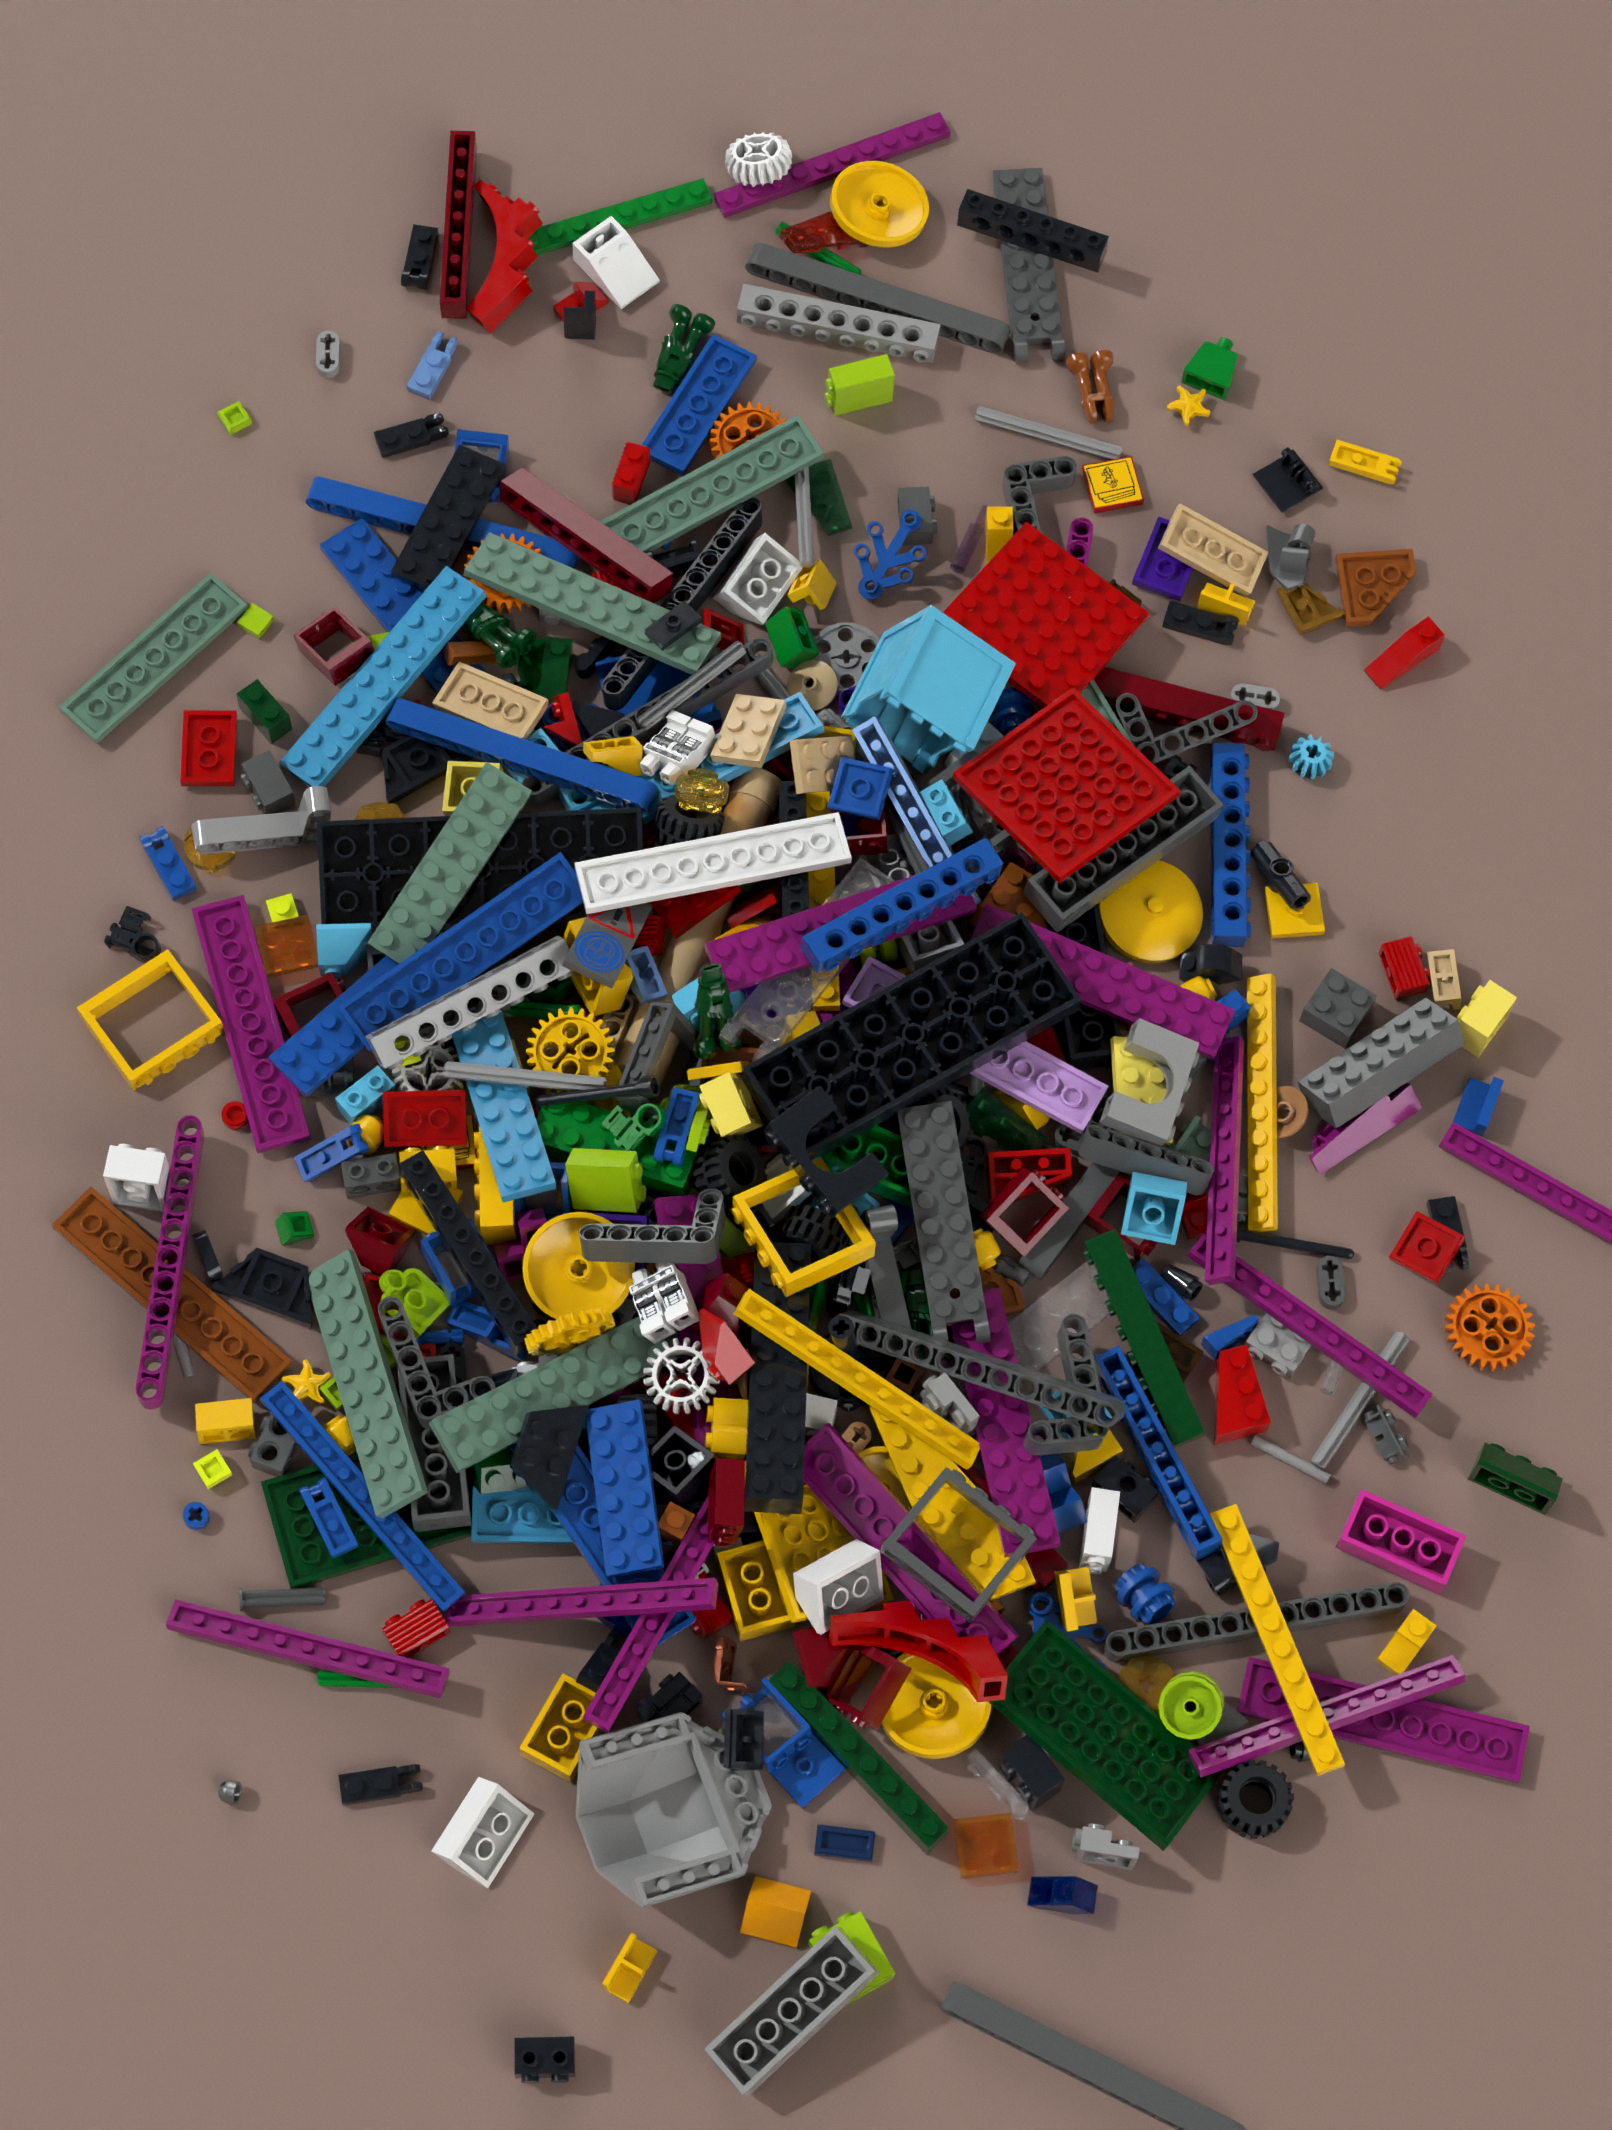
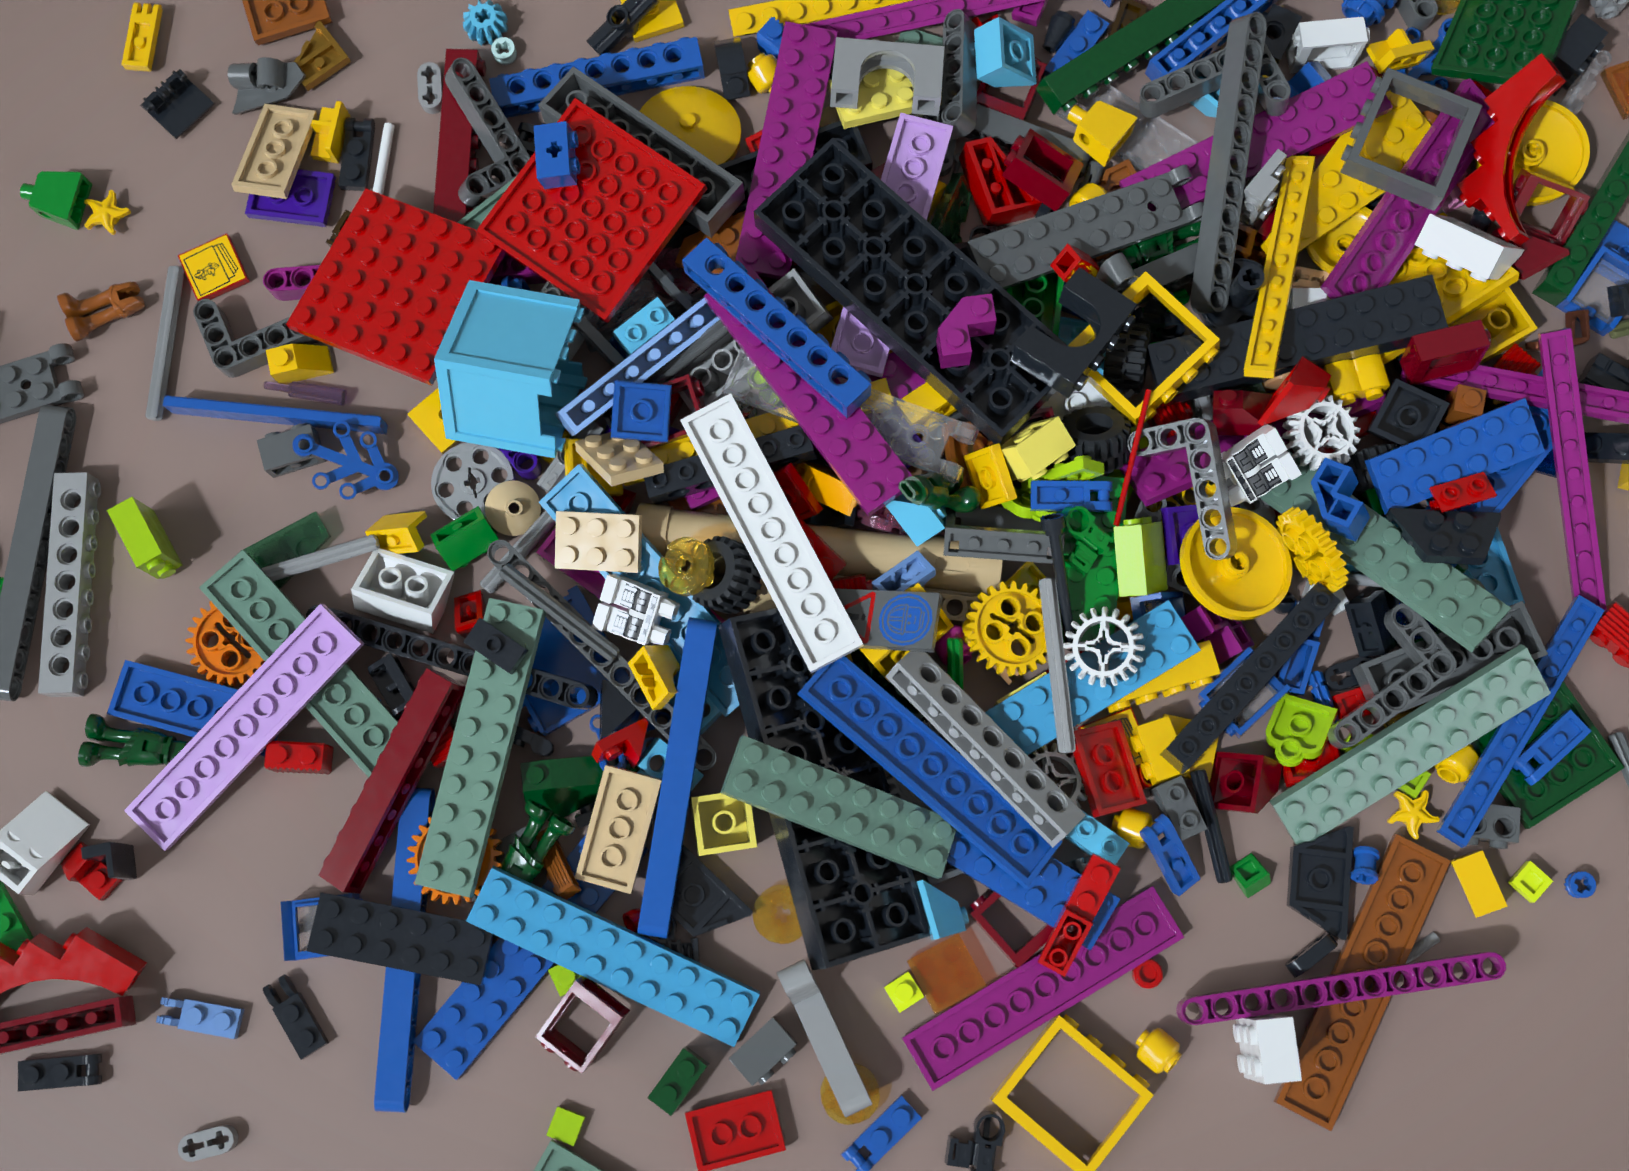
camera: 95 degrees left, 10 degrees up
(166, 1101) = (1158, 1050): none -> yellow head
(271, 1324) = (1365, 865): none -> blue bush
(300, 1045) = (1078, 914): none -> red slope
(334, 1202) = (1213, 832): none -> black axle
(533, 1121) = (1104, 621): none -> white gear
(585, 1477) = (1461, 492): none -> red hinge
(619, 1357) = (1333, 489): none -> blue brick
(667, 433) = (244, 727): none -> lavender plate
(699, 1187) = (1132, 457): none -> red piece
(847, 1043) = (968, 319): none -> magenta brick
(903, 1192) = (1070, 260): none -> red brick
(952, 510) = (273, 414): none -> blue tile
(1054, 1280) = (1101, 130): none -> yellow torso
(1121, 758) = (556, 155): none -> blue brick
(1187, 644) = (383, 159): none -> white bar
(1279, 778) = (504, 43): none -> light aqua bush

